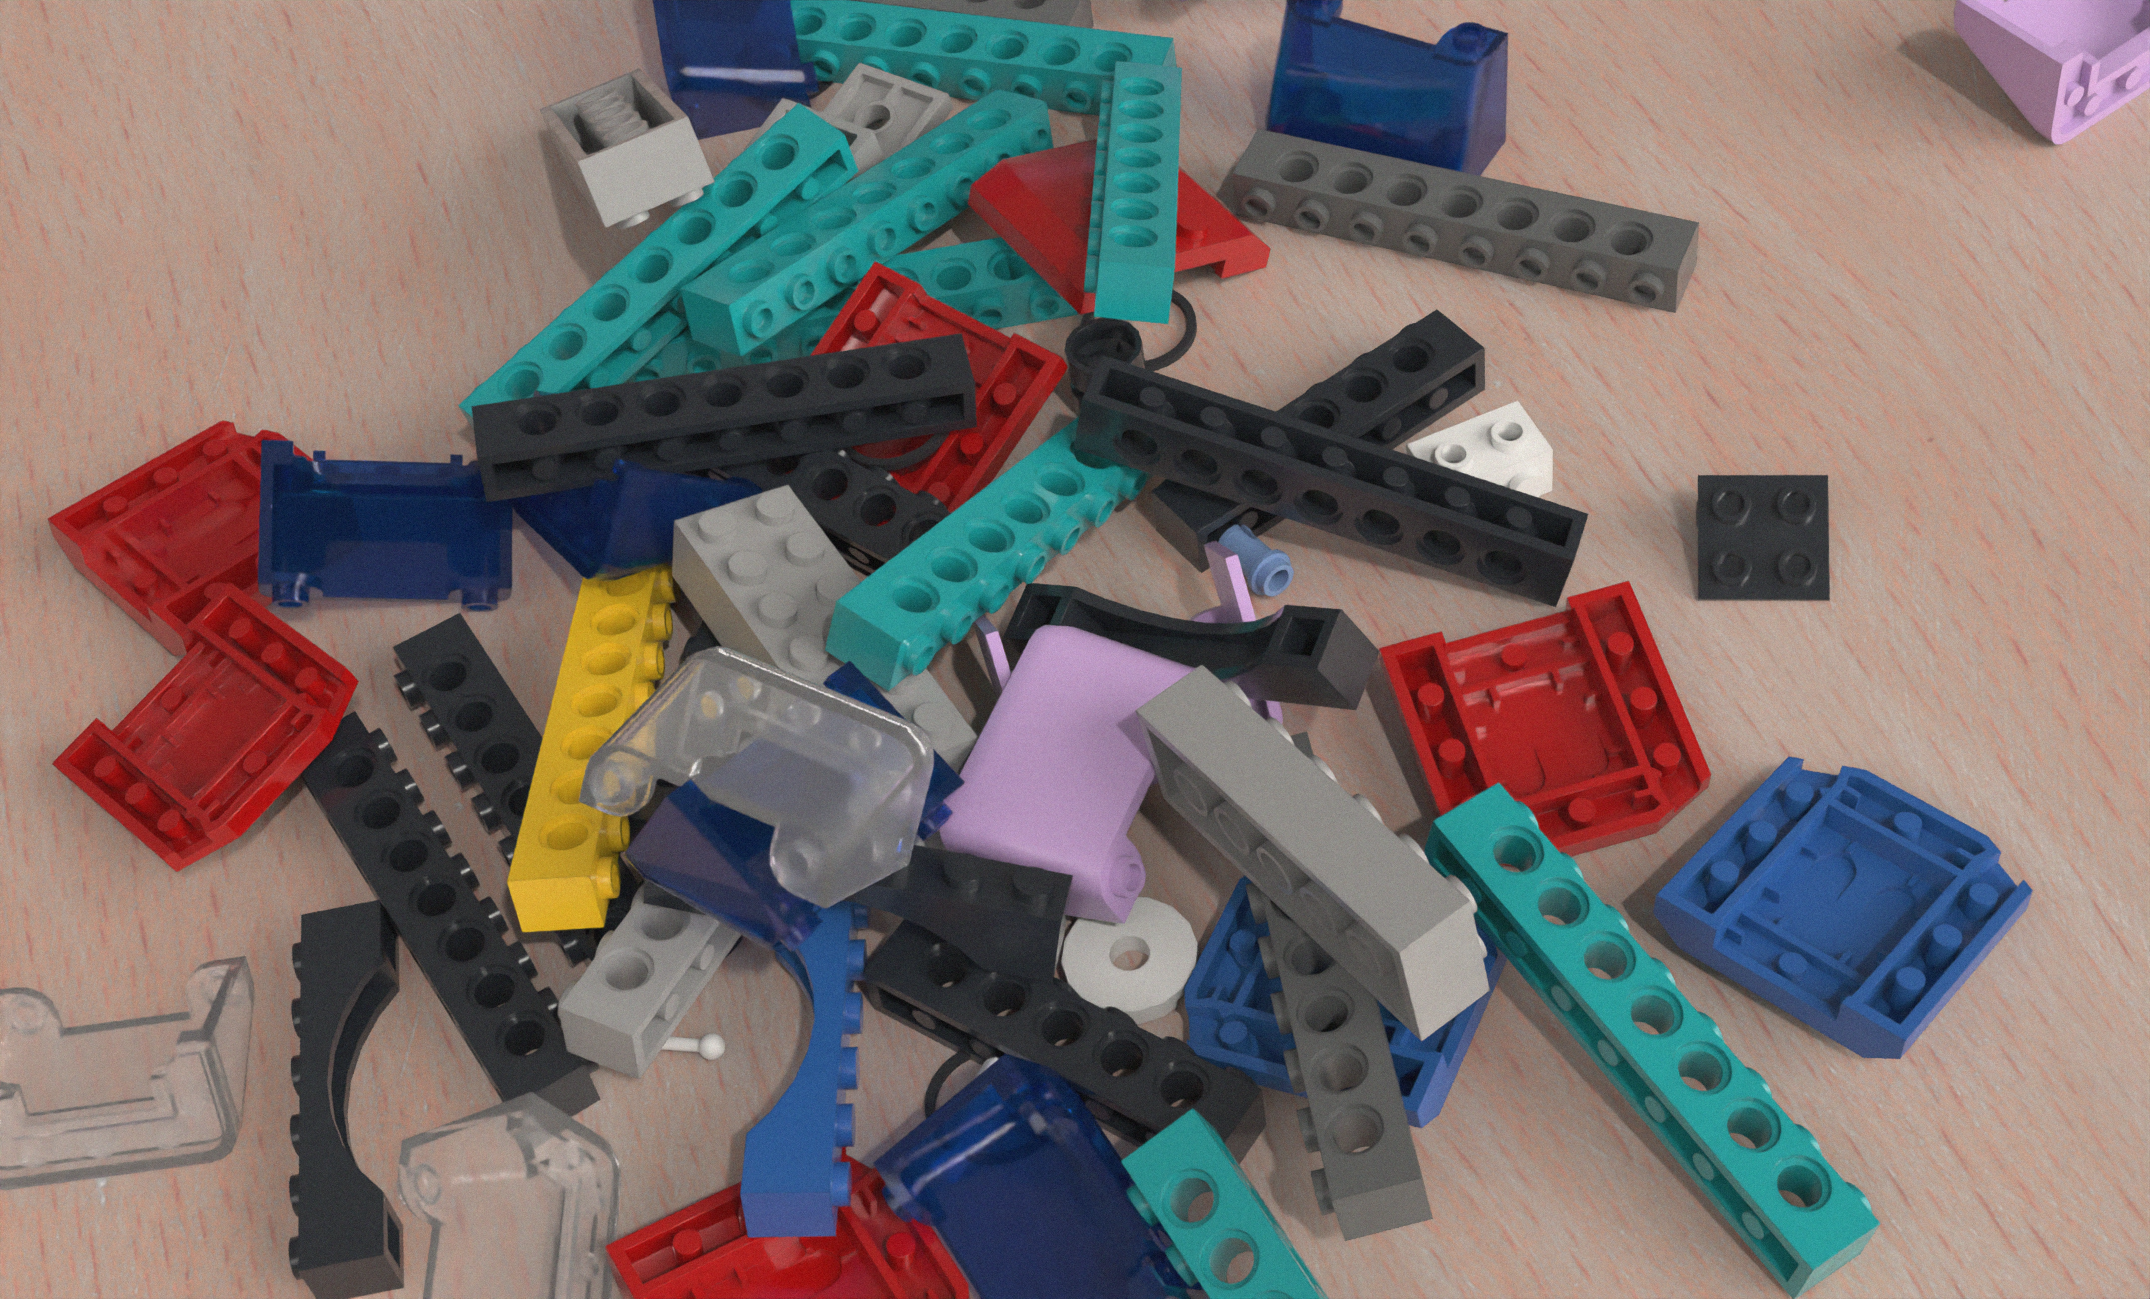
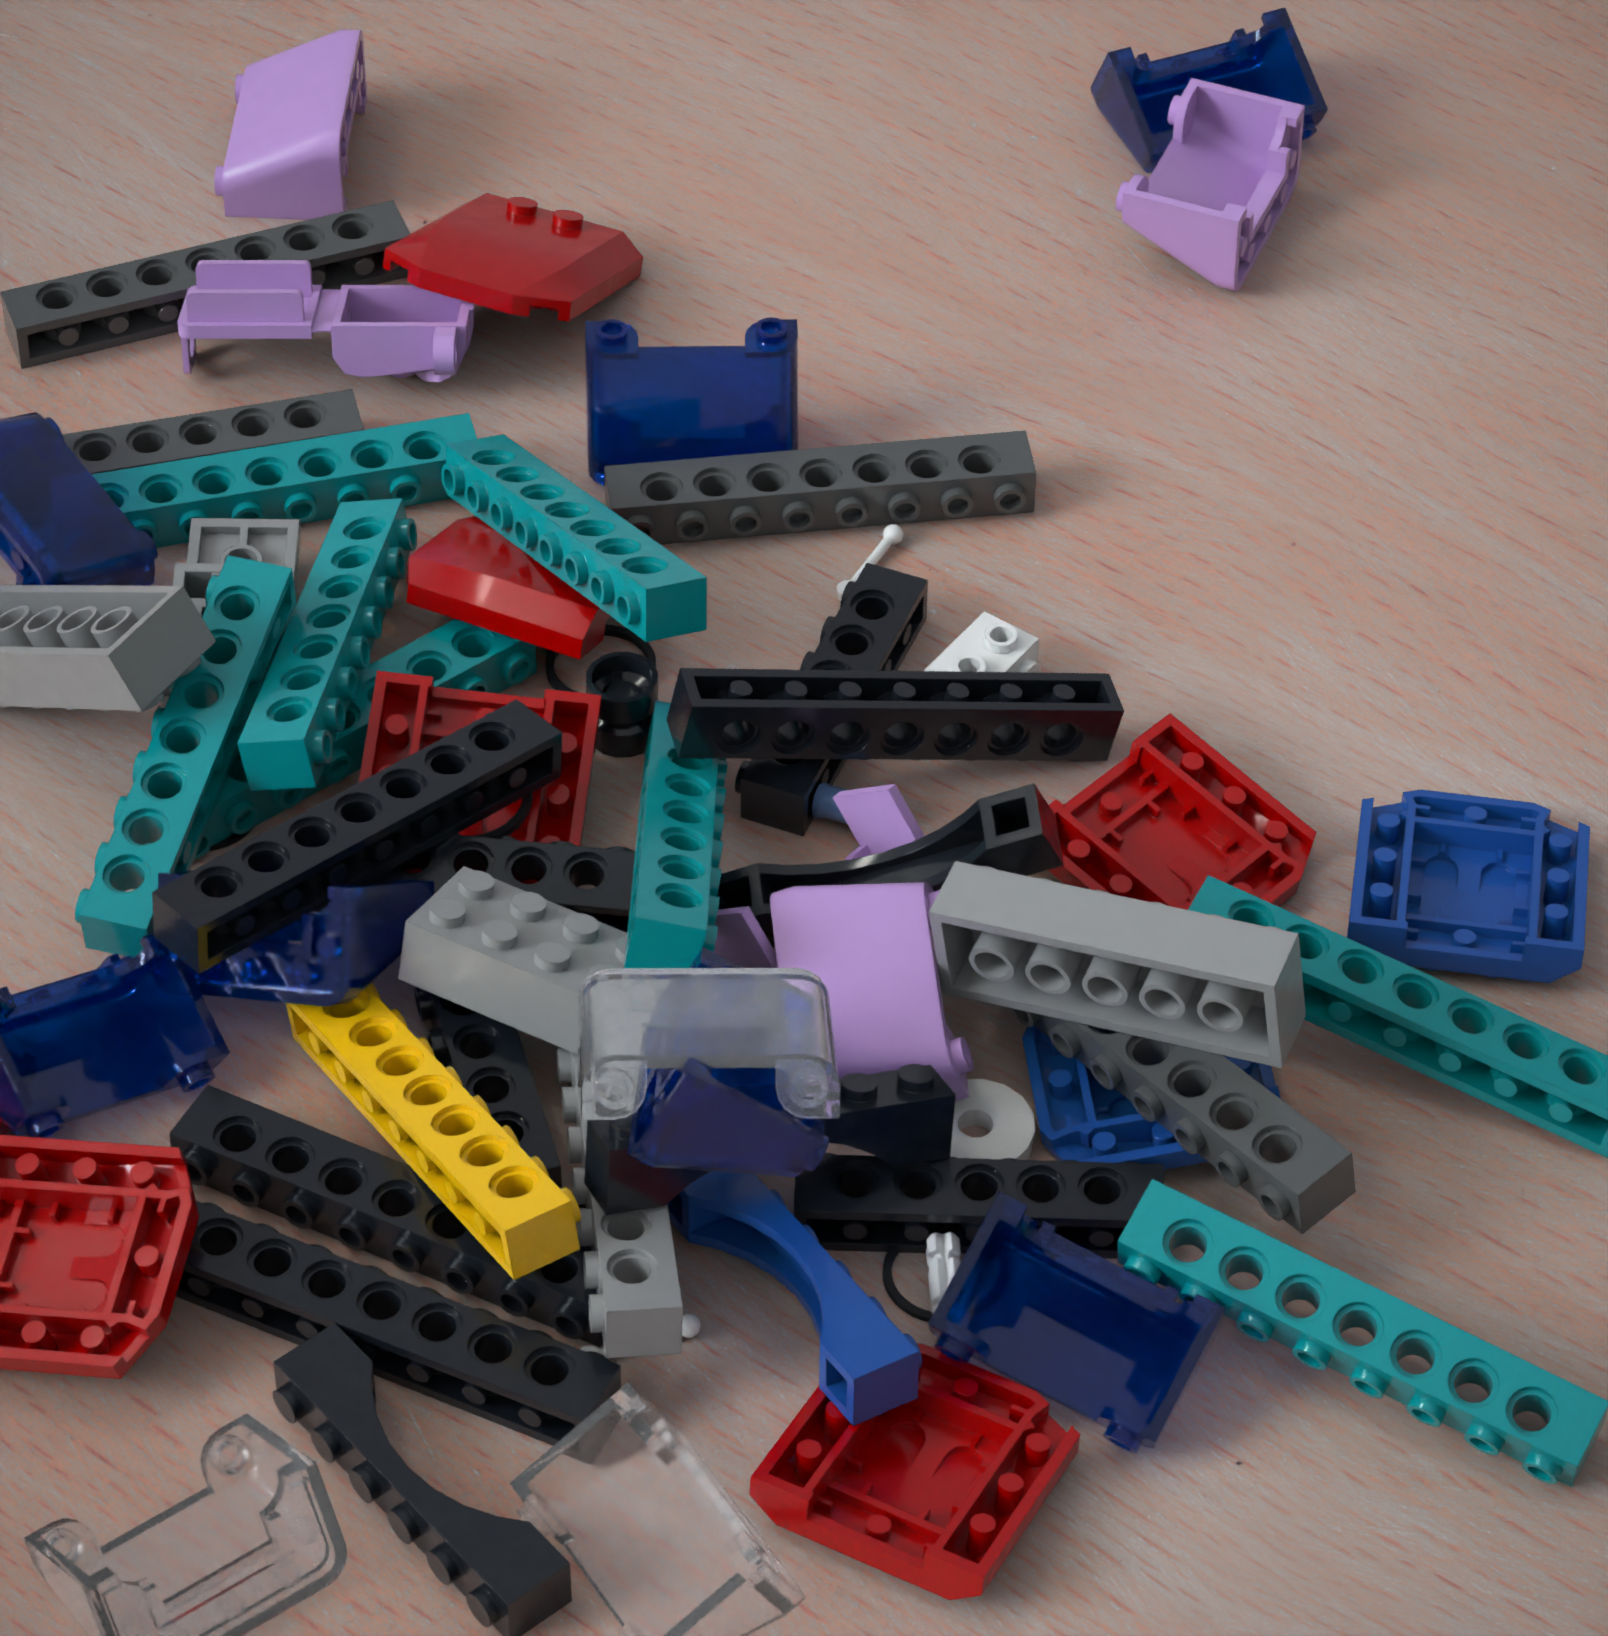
camera: 40 degrees left, 5 degrees down
(1508, 290) = (892, 535): none -> white hinge
(1763, 538) = (1230, 653): black hinge -> none

